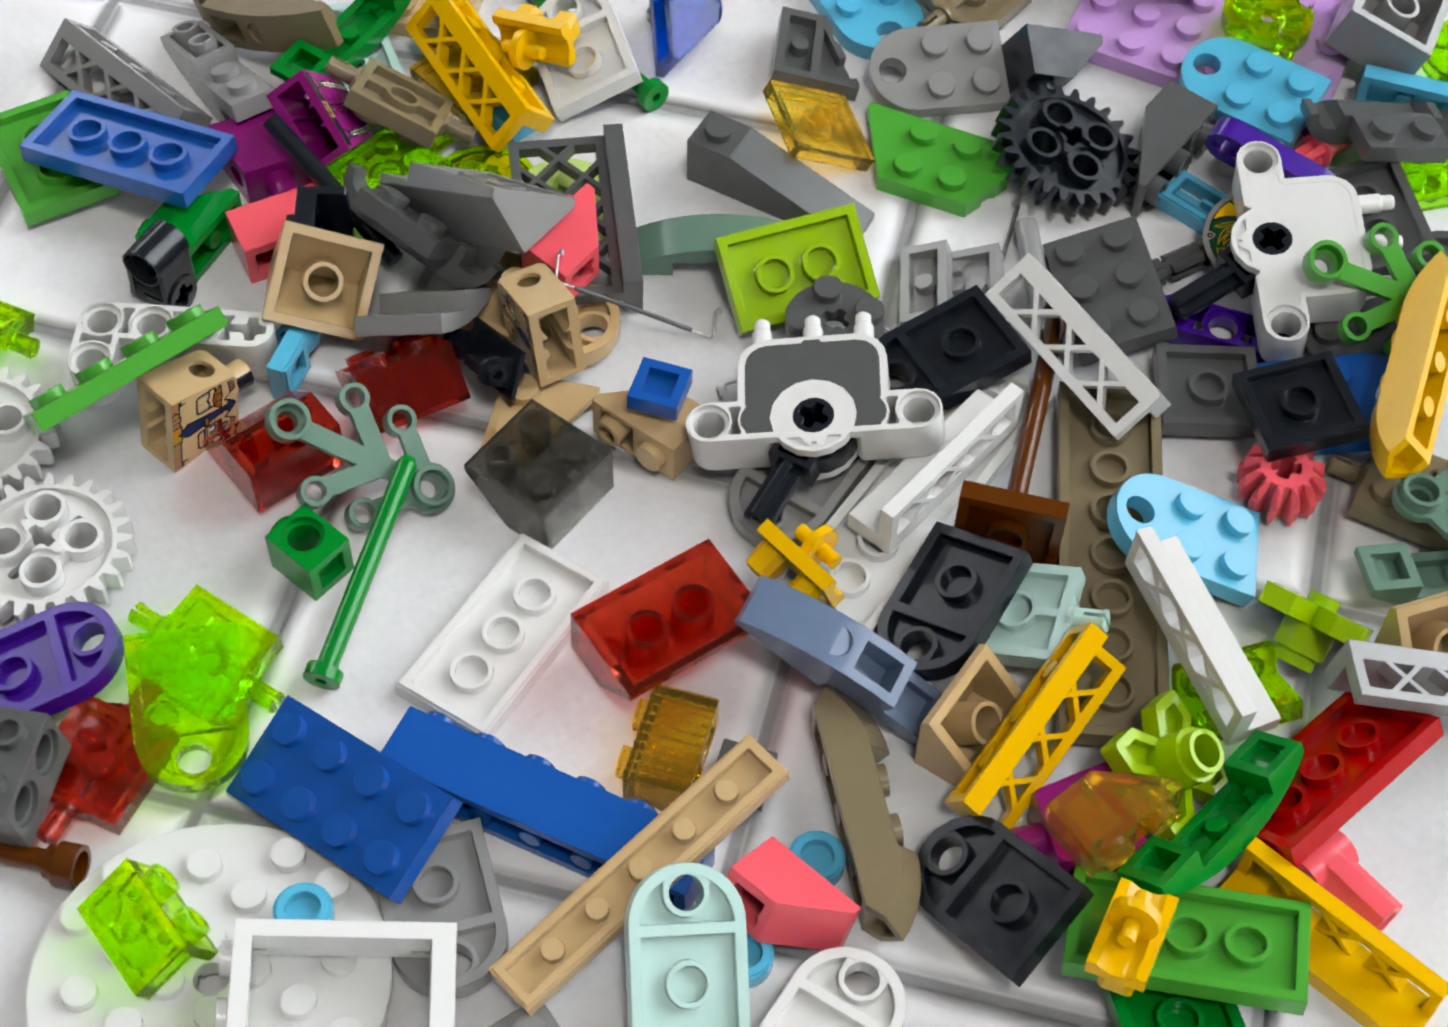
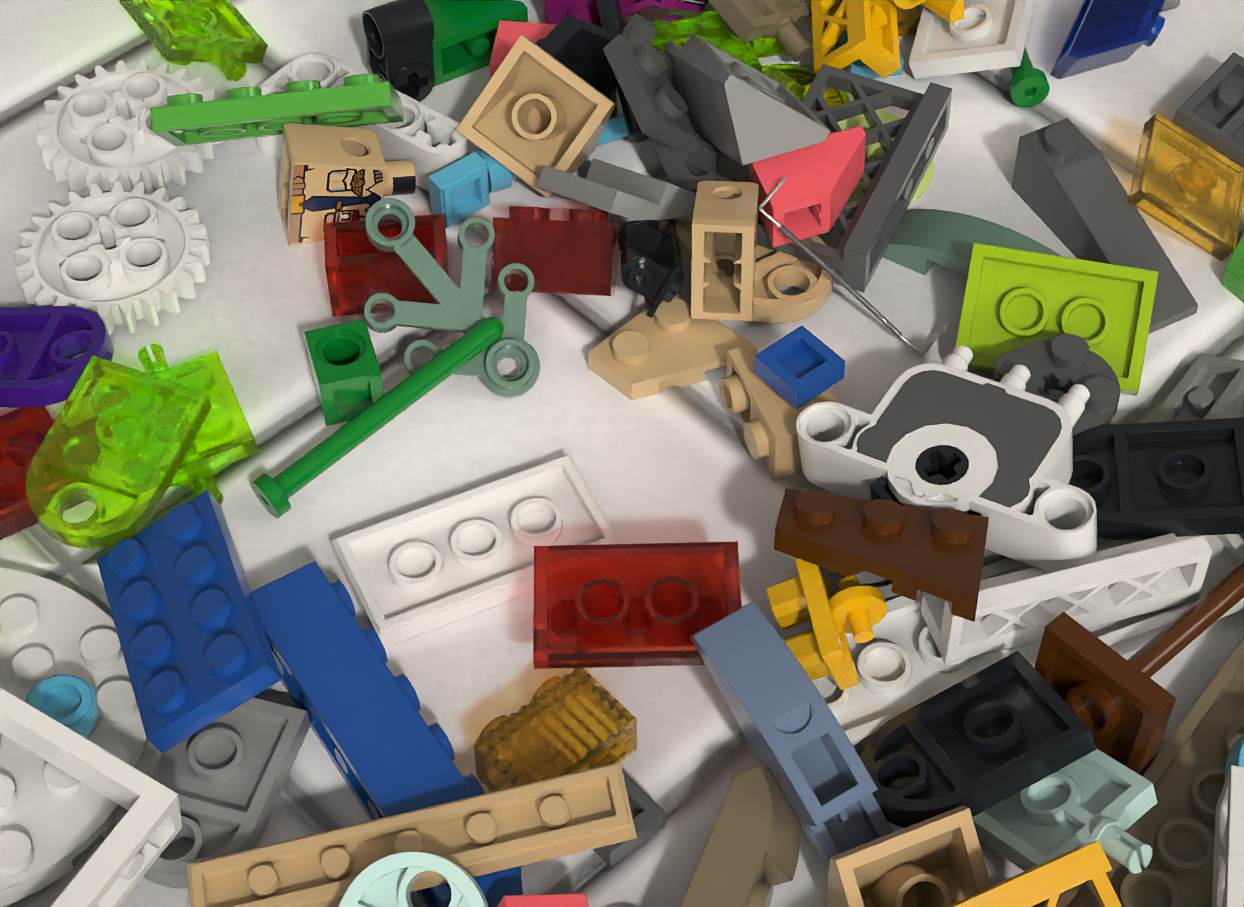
camera: 35 degrees right, 5 degrees down
(542, 473) = (627, 404): clear smoke slope -> none
(825, 484) = (906, 544): none -> reddish brown wing

